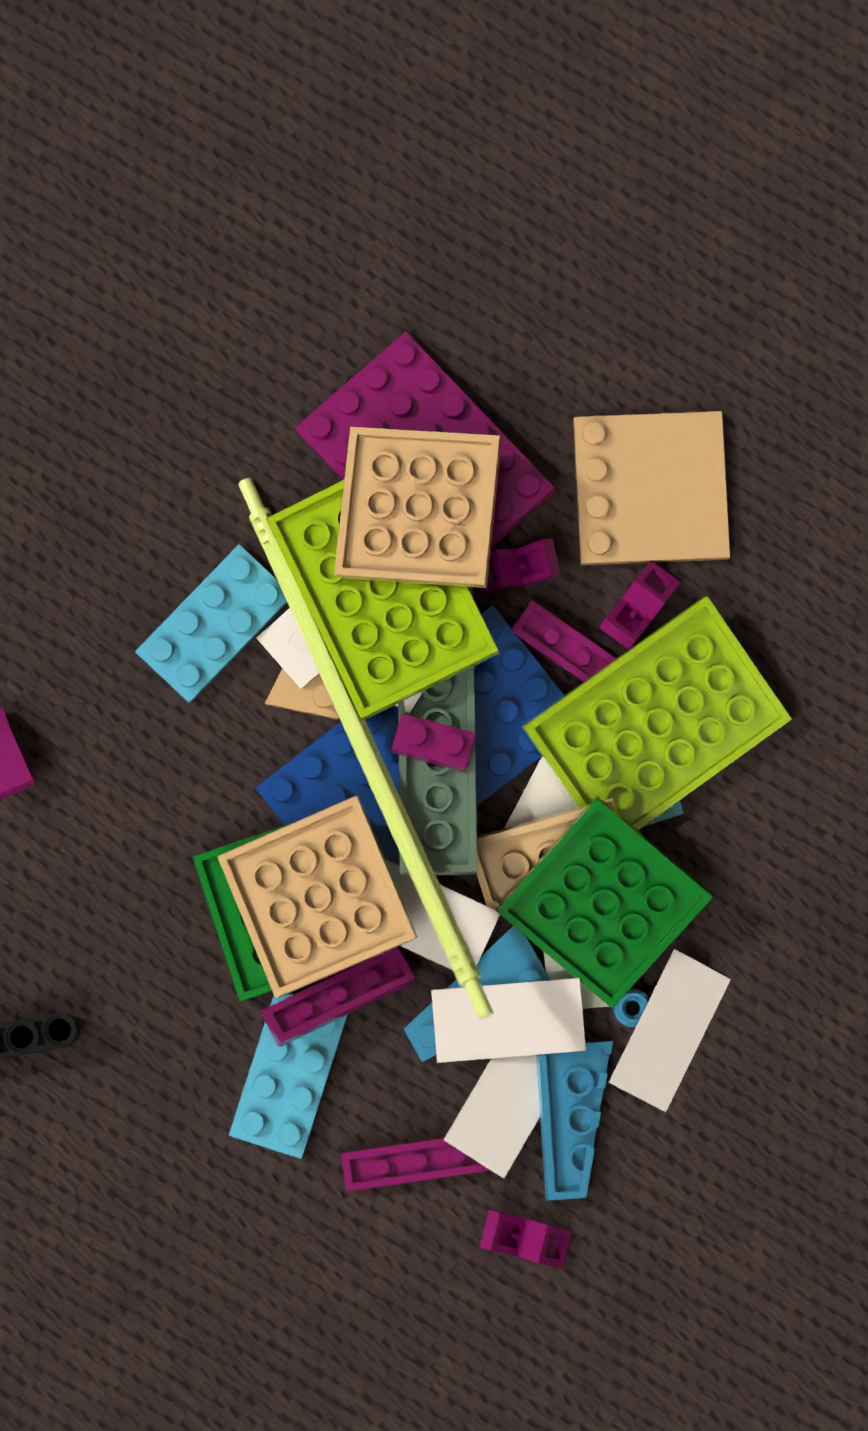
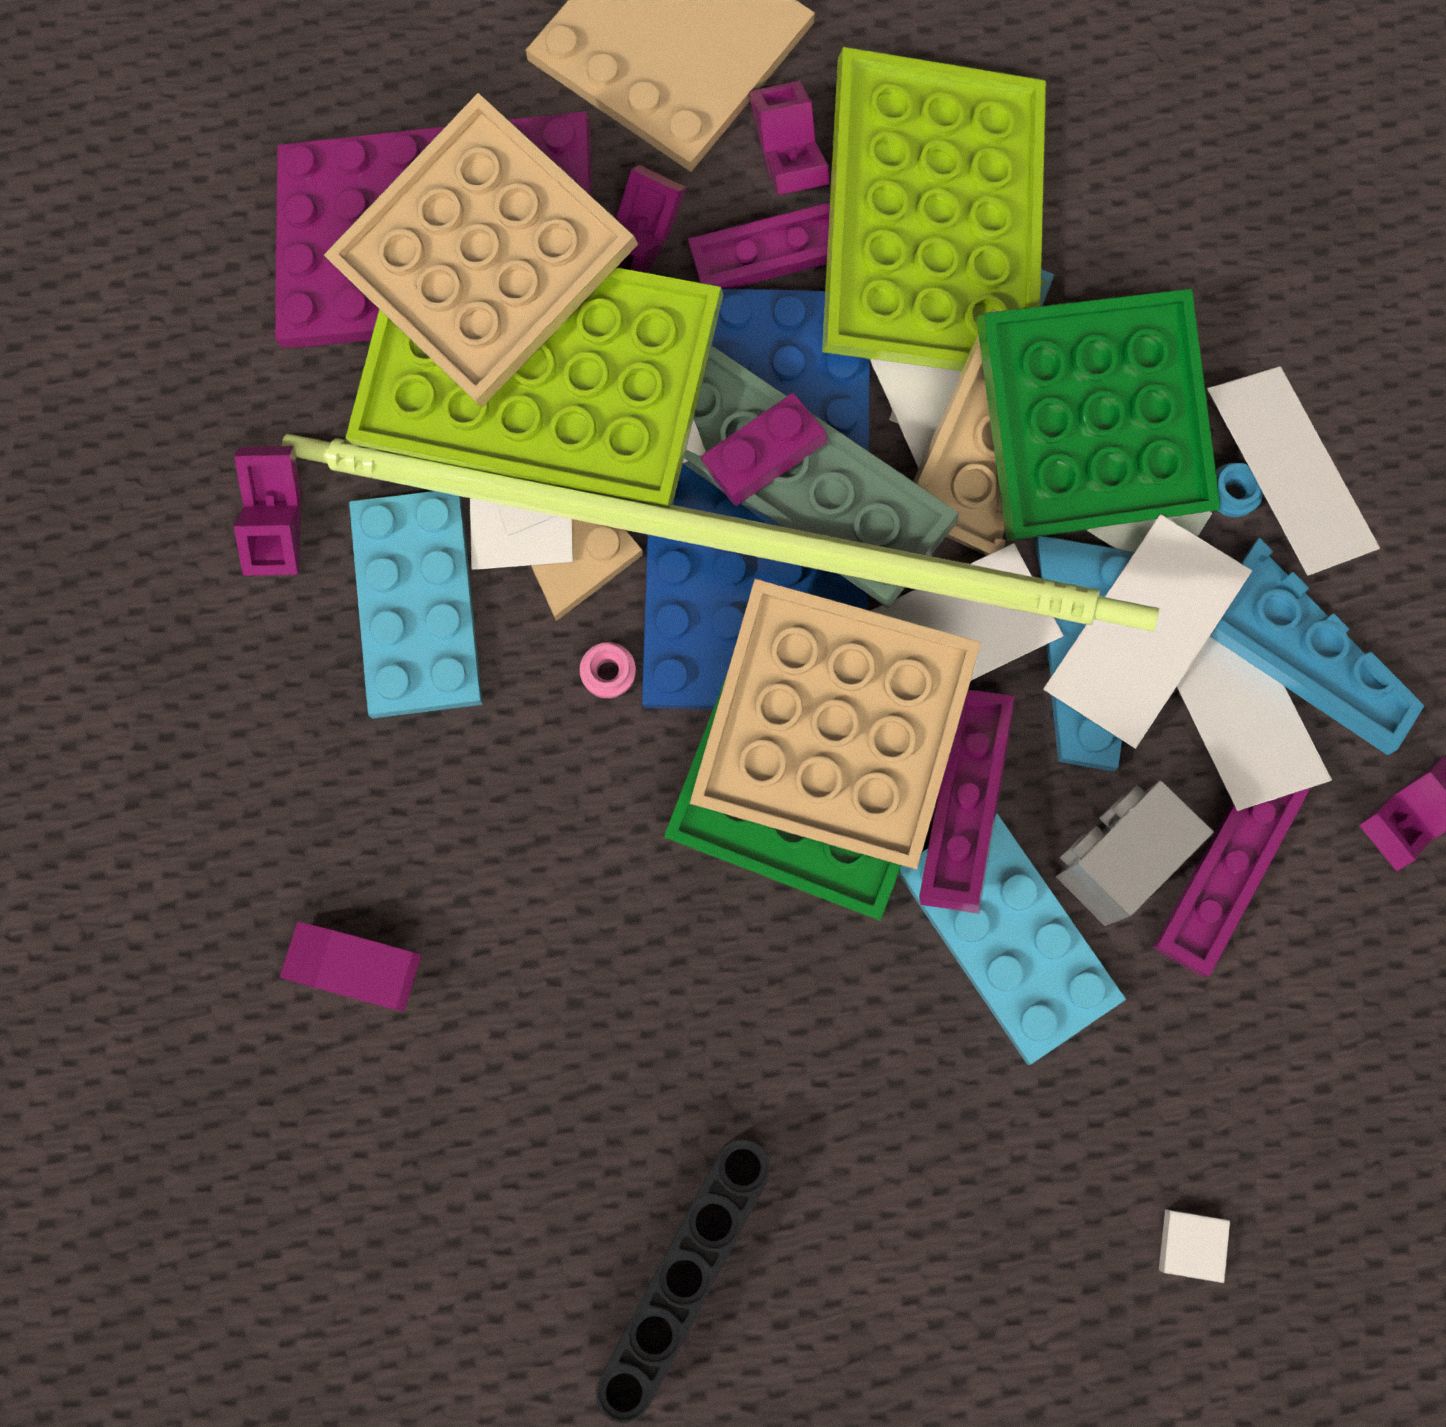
camera: 45 degrees left, 5 degrees down
(200, 507) = (271, 511): none -> magenta slope
(203, 1288) = (1194, 1246): none -> white tile
(259, 742) = (605, 653): none -> bright pink plate
(374, 1101) = (1135, 853): none -> light grey brick

